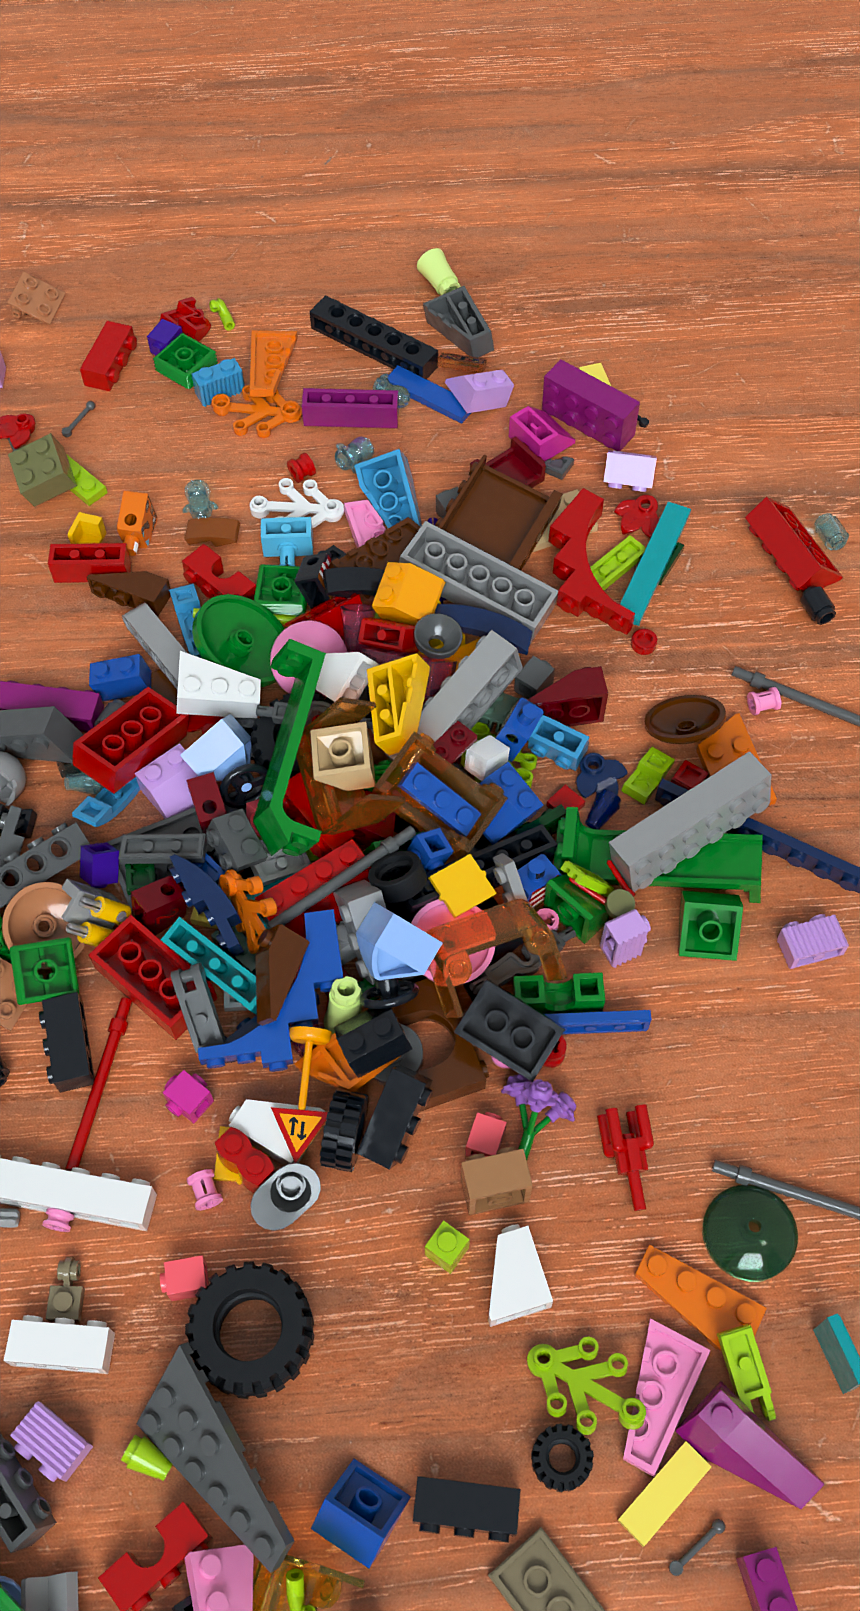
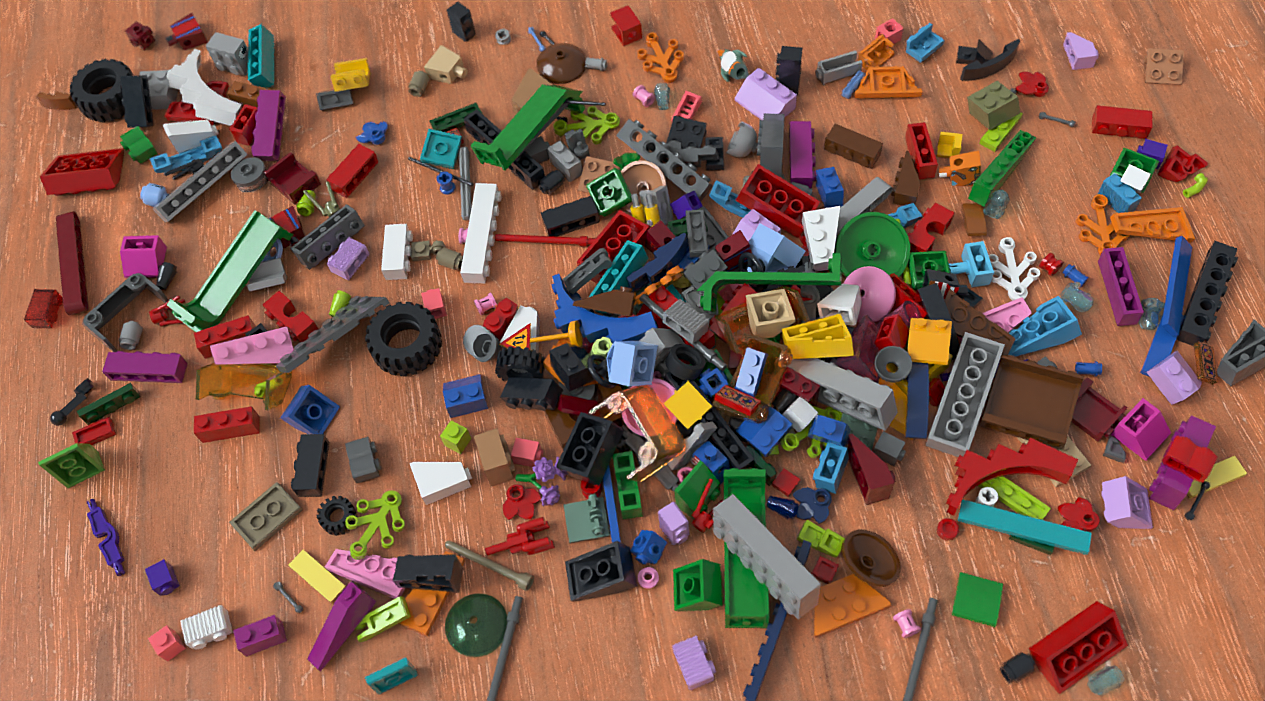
camera: 90 degrees right, 0 degrees up
(52, 641) = (853, 146): none -> reddish brown brick
(99, 1247) = (449, 258): none -> dark tan brick
(167, 496) = (1001, 168): none -> green slope
(187, 1096) = (540, 284): dark pink brick -> none
(209, 352) = (1135, 178): none -> white panel
(321, 449) = (1075, 275): none -> blue pin
(335, 863) = (686, 321): none -> light grey brick
(360, 359) = (1177, 286): none -> blue tile
(367, 1232) = (464, 396): none -> blue slope
(431, 1046) = (575, 405): none -> dark red slope
(453, 459) = (1089, 368): none -> blue pin
(466, 1409) = (363, 460): none -> dark grey brick
(473, 815) = (737, 400): none -> tile
(567, 1153) = (520, 505): none -> red plate
(587, 878) = (711, 492): lime tile -> none
(599, 1062) = (586, 519): none -> sand green hinge
(603, 385) = (1189, 458): none -> red brick
(608, 587) = (988, 493): none -> white bush
(619, 903) = (695, 515): olive tile -> none
(653, 977) = (648, 547): none -> blue brick
(683, 1288) = (429, 572): none -> black wedge
(684, 1048) = (601, 572): none -> black slope
(688, 993) = (648, 583): none -> bright pink plate
(688, 1156) = (523, 580): none -> dark tan piece
(735, 627) = (977, 599): none -> green slope

